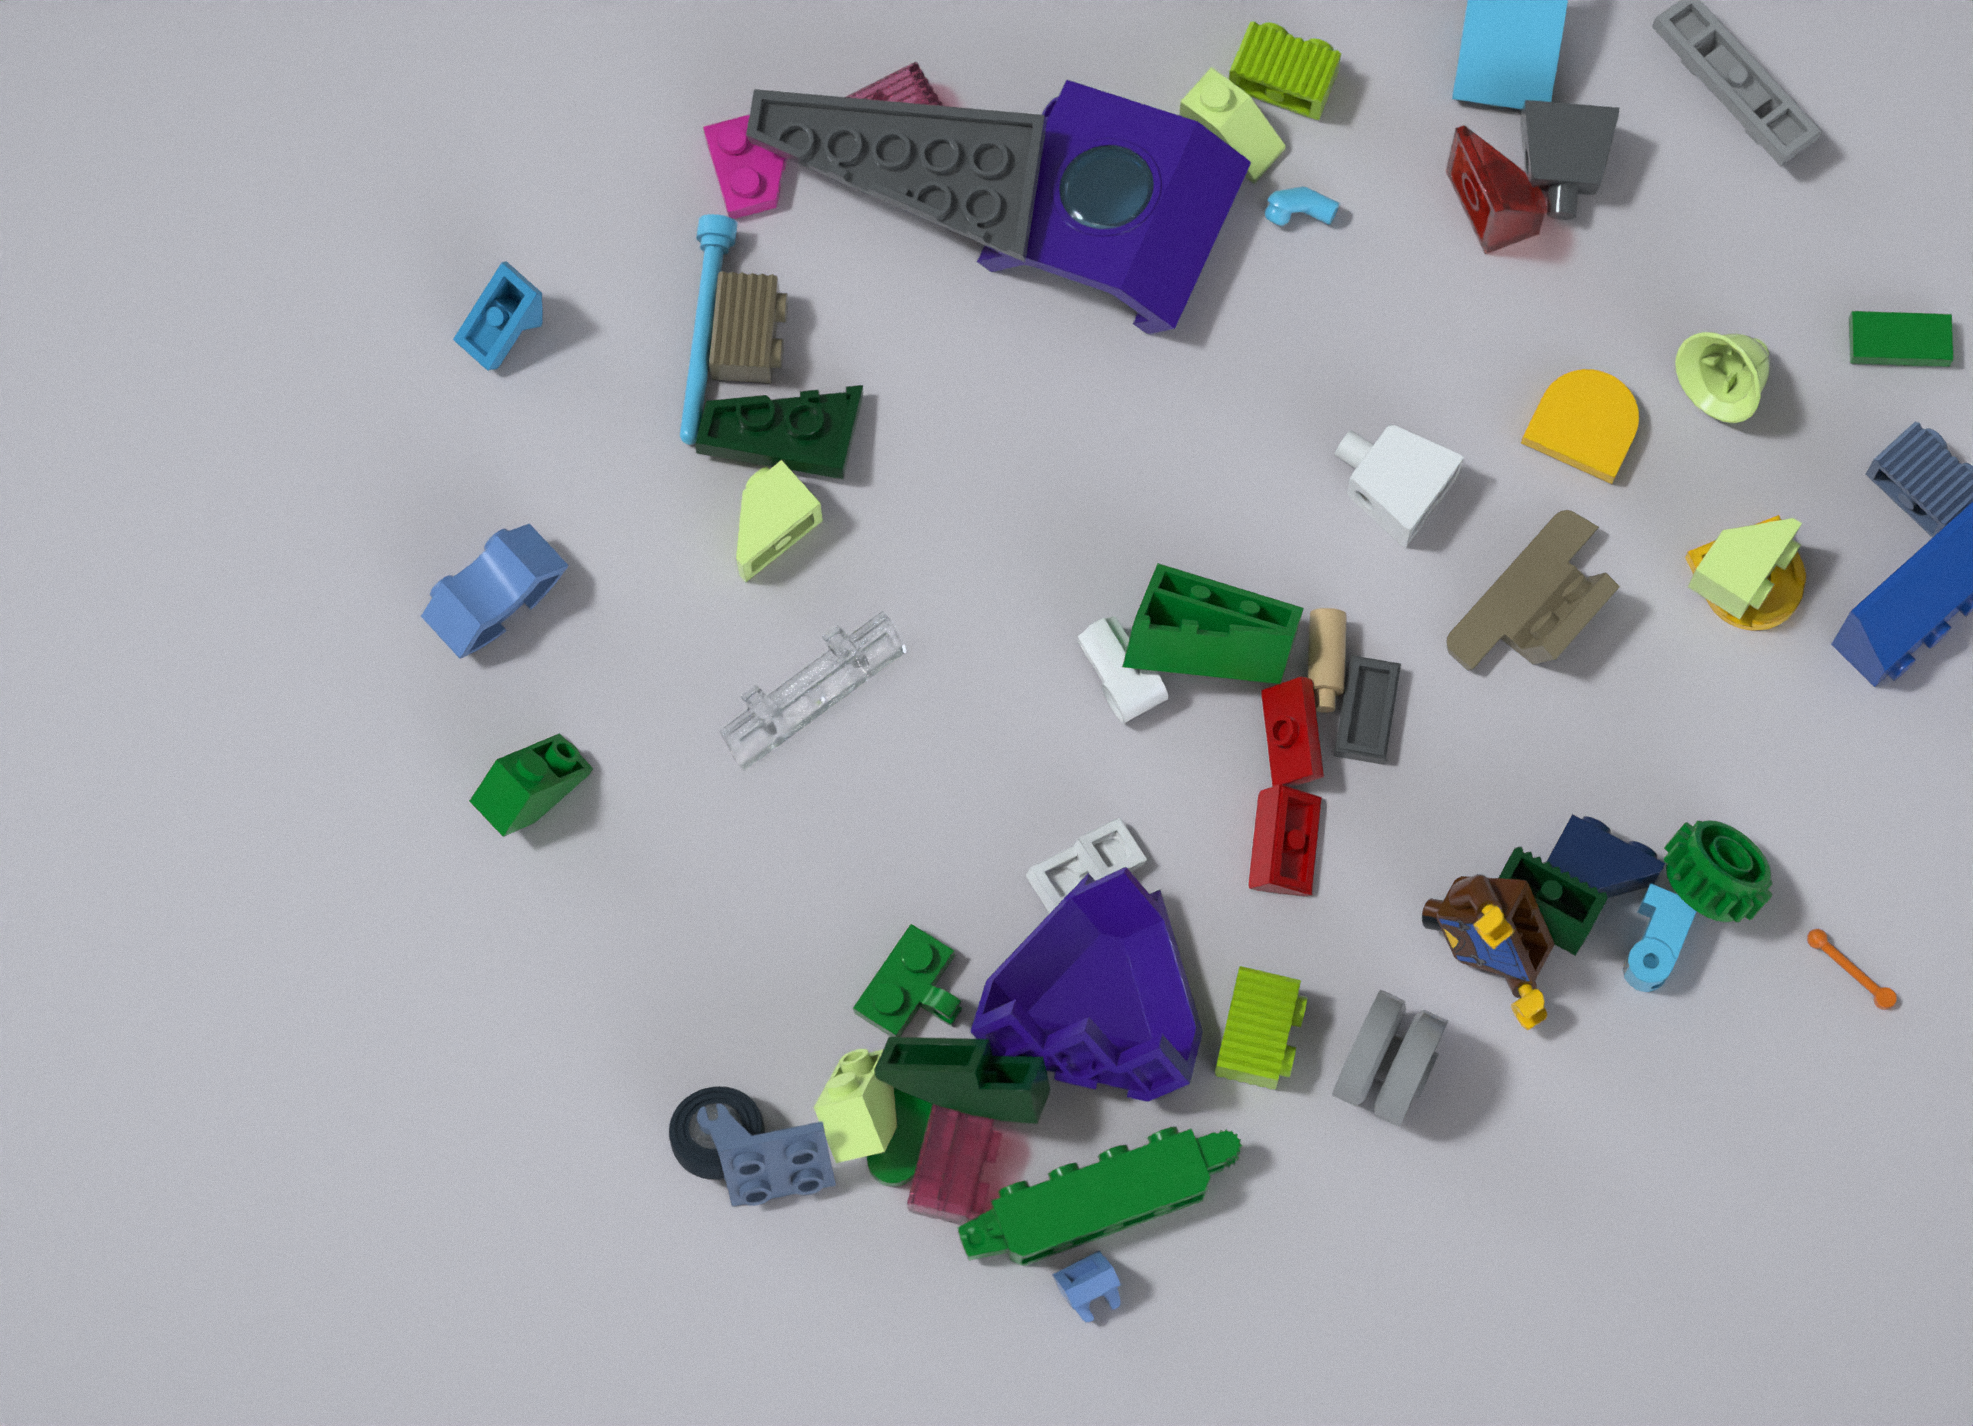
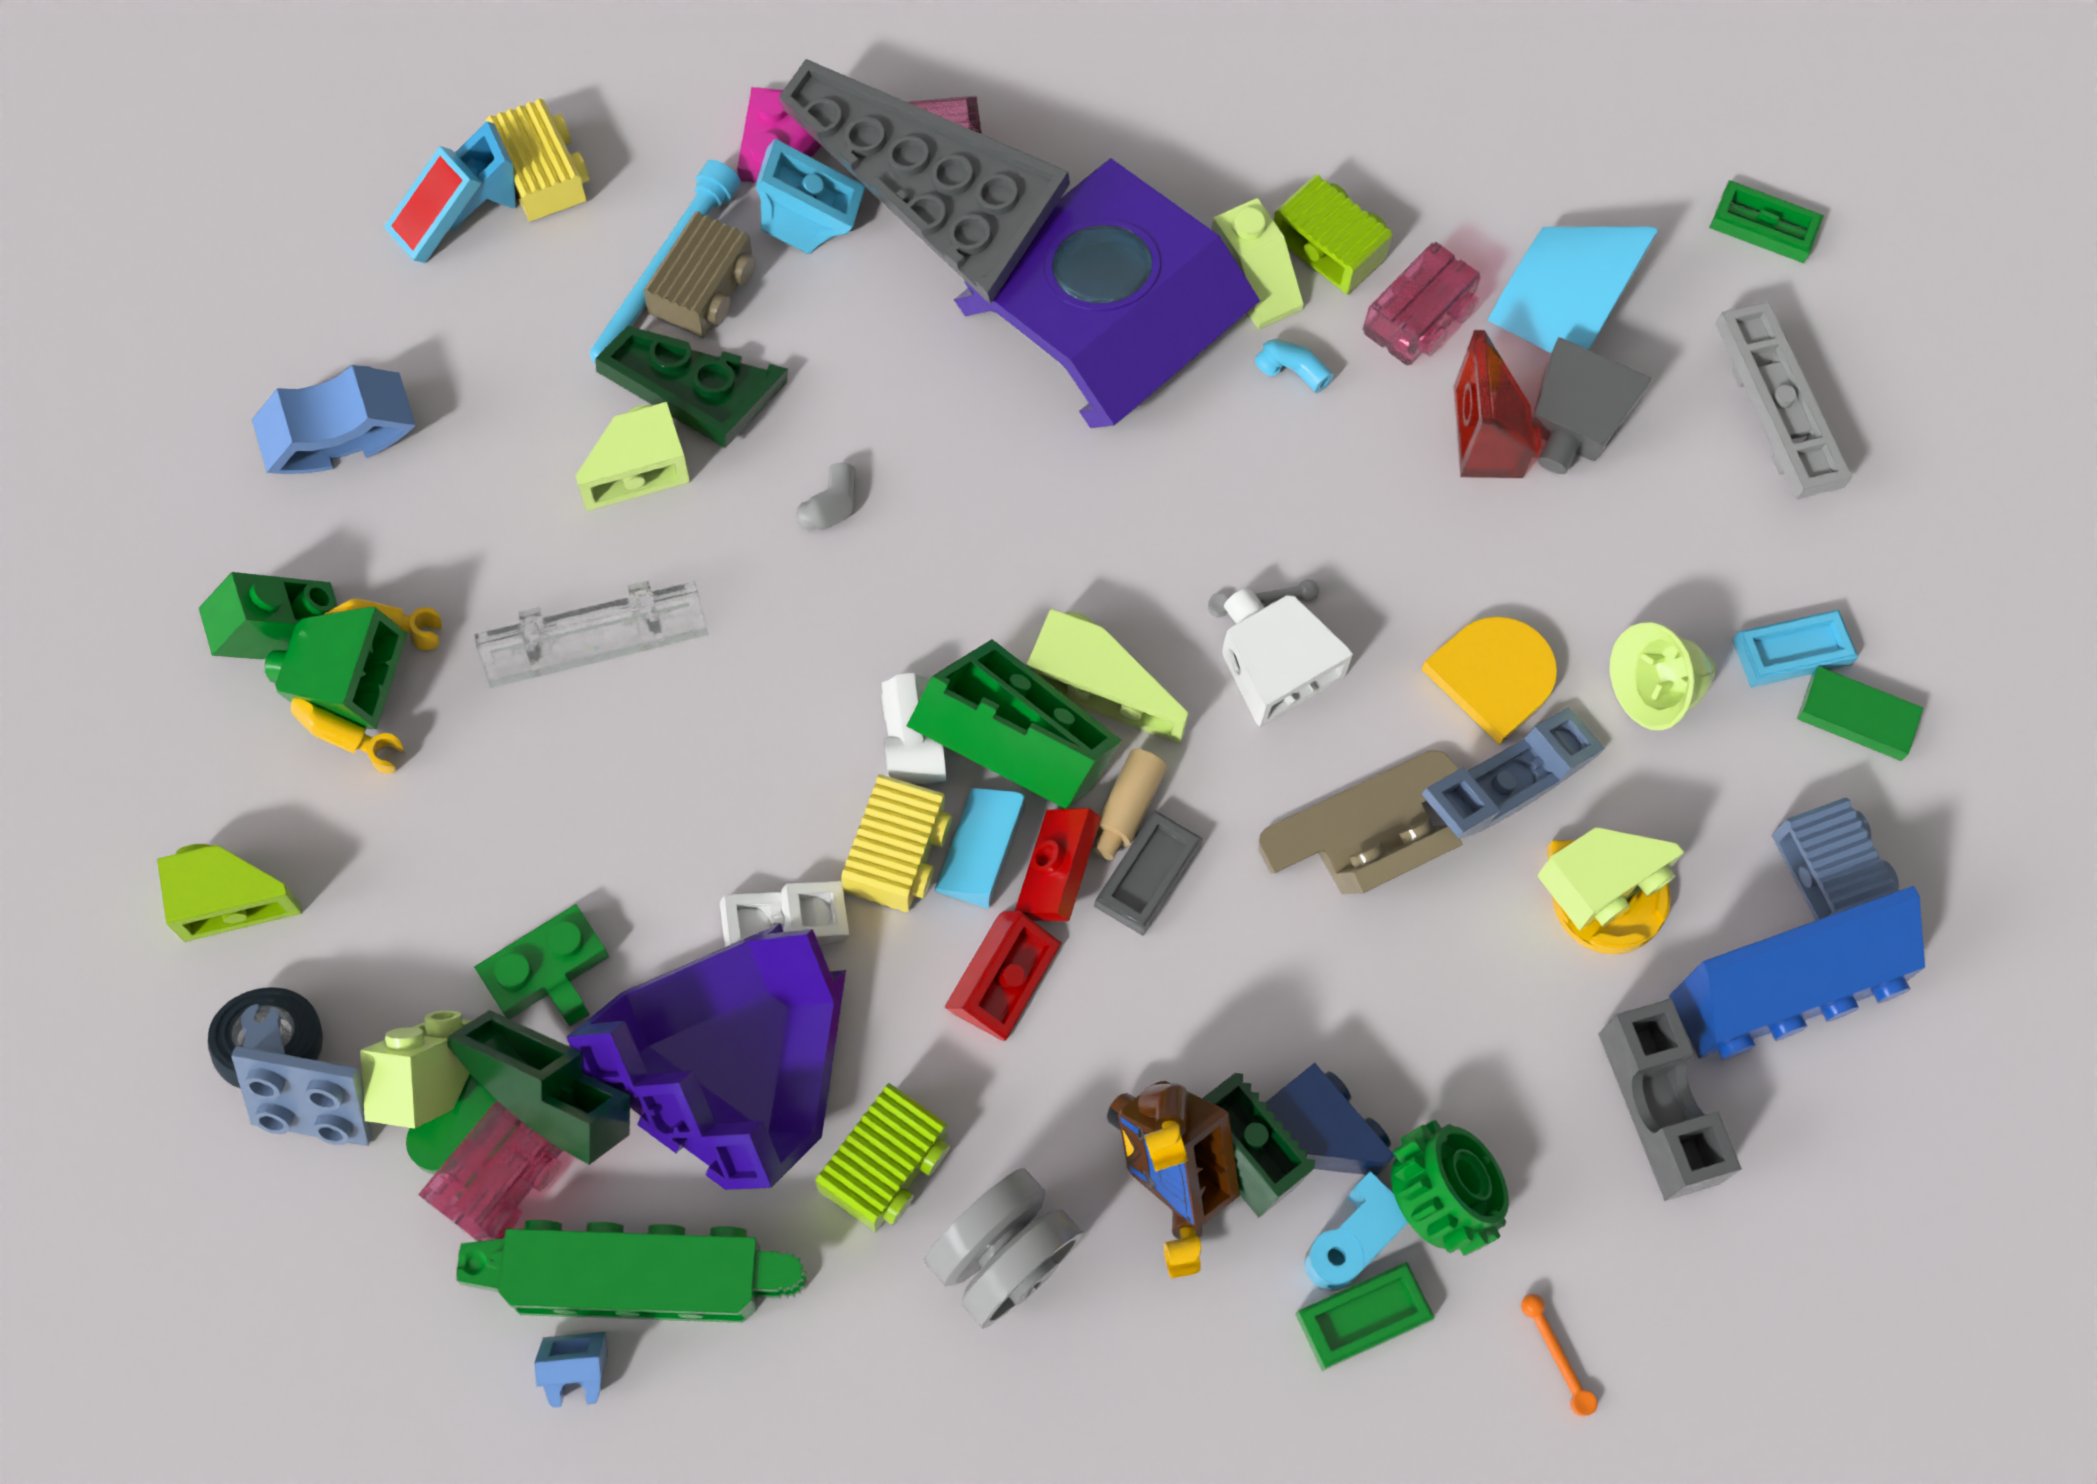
camera: 15 degrees right, 5 degrees down
(479, 355) = (432, 204): none -> tile
(566, 282) = (543, 169): none -> light yellow brick
(614, 1029) = (218, 892): none -> lime slope
(621, 805) = (344, 668): none -> green torso
(806, 219) = (804, 198): none -> medium azure slope
(960, 492) = (832, 504): none -> light grey arm
(1151, 768) = (894, 844): none -> light yellow brick
(1220, 742) = (981, 845): none -> medium azure slope
(1260, 557) = (1103, 676): none -> yellowish green slope
(1391, 106) = (1422, 303): none -> clear pink brick
(1396, 410) = (1306, 590): none -> light grey hinge
(1637, 507) = (1515, 776): none -> sand blue slope
(1689, 999) = (1364, 1316): none -> green tile
(1826, 301) = (1794, 648): none -> medium azure tile
(1837, 708) = (1650, 1065): none -> dark grey arch

